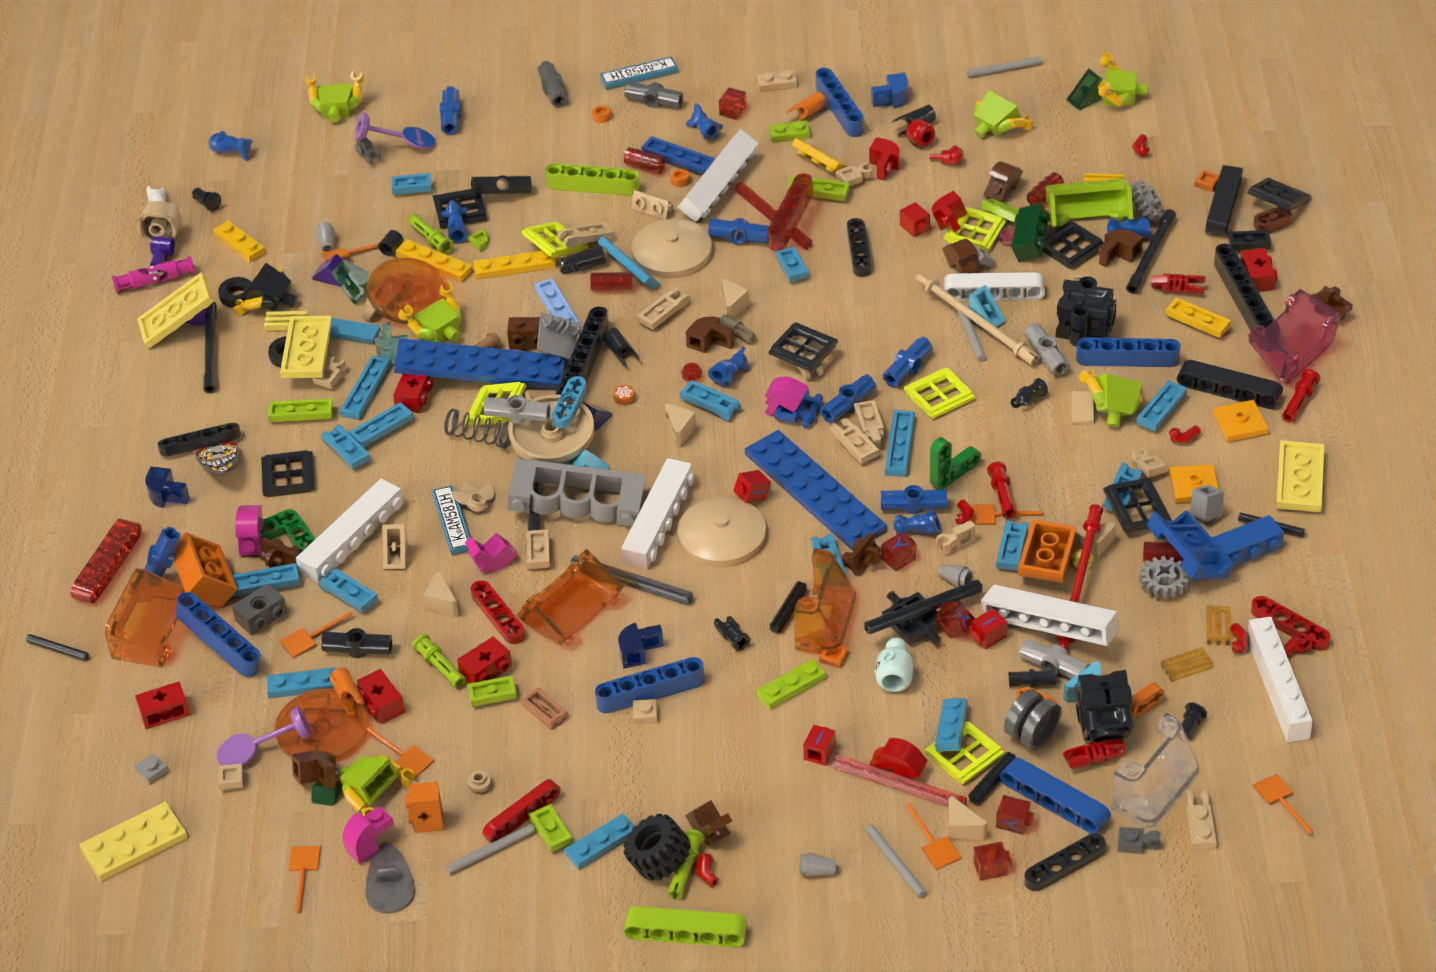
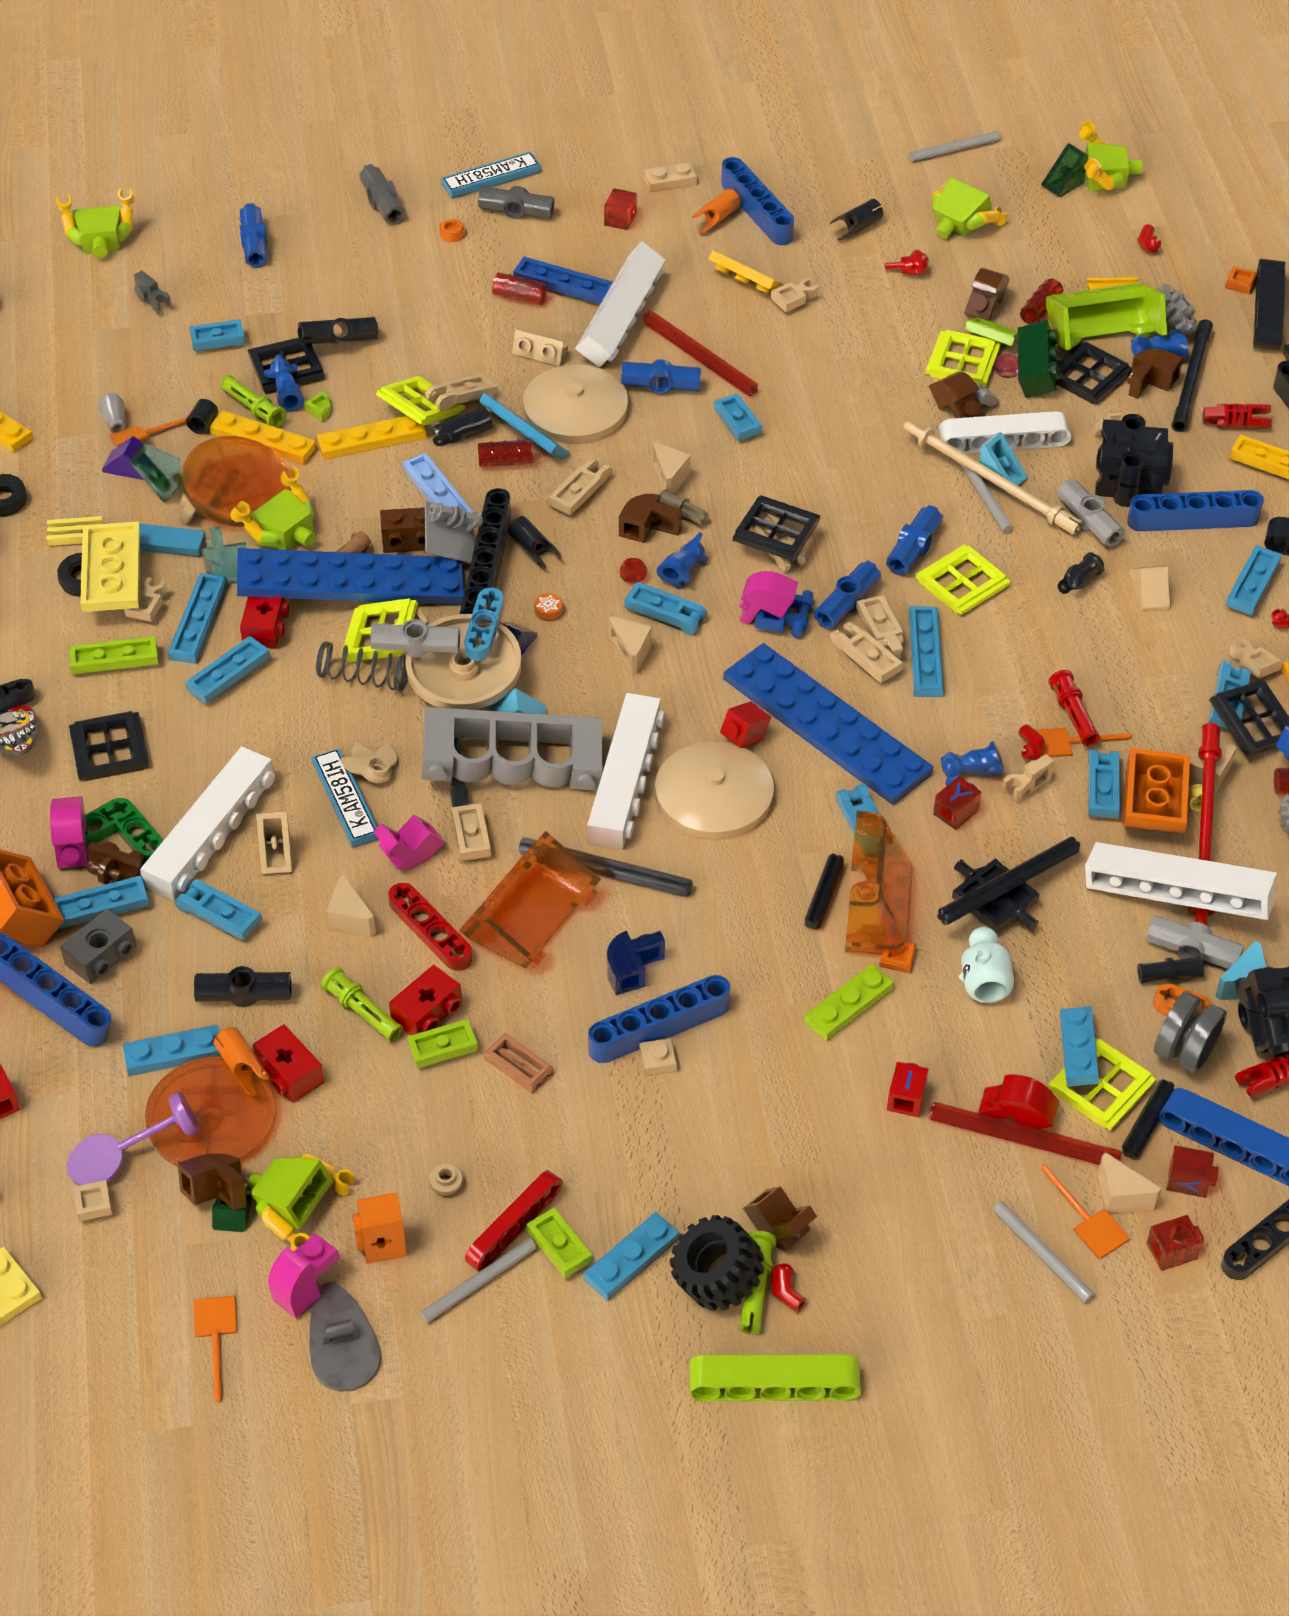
camera: 10 degrees left, 5 degrees up
(266, 291) = (44, 492): black torso -> none
(300, 640) = (162, 989): orange piece -> none
(346, 447) = (184, 703): dark azure plate -> none
(412, 135) = (207, 269): medium lavender piece -> none
(412, 758) = (344, 1154): orange piece -> none
(592, 179) = (456, 317): lime beam -> none
(680, 178) = (569, 309): orange tile -> none
(706, 125) = (594, 240): blue animal -> none
(731, 631) = (757, 933): black piece -> none
(789, 131) = (698, 242): lime plate -> none
(790, 212) = (725, 348): clear red beam -> none
(816, 865) = (937, 1268): light grey cone -> none
(828, 189) = (752, 314): lime plate -> none
(859, 247) = (815, 390): black beam -> none
(864, 553) = (913, 810): reddish brown hips -> none
(885, 155) = (830, 267): red brick -> none
(894, 92) = (822, 186): blue brick -> none
(914, 219) = (884, 349): red brick -> none
(914, 499) = (961, 728): blue piece -> none
(920, 133) = (869, 236): red head -> none
(944, 468) = (1002, 678): green beam -> none
(948, 210) = (927, 335): red brick -> none
(954, 619) = (1053, 894): clear red brick -> none
(956, 574) = (1039, 830): light grey cone -> none
(988, 628) = (1099, 904): red brick -> none
(1113, 395) = (1193, 569): lime torso -> none

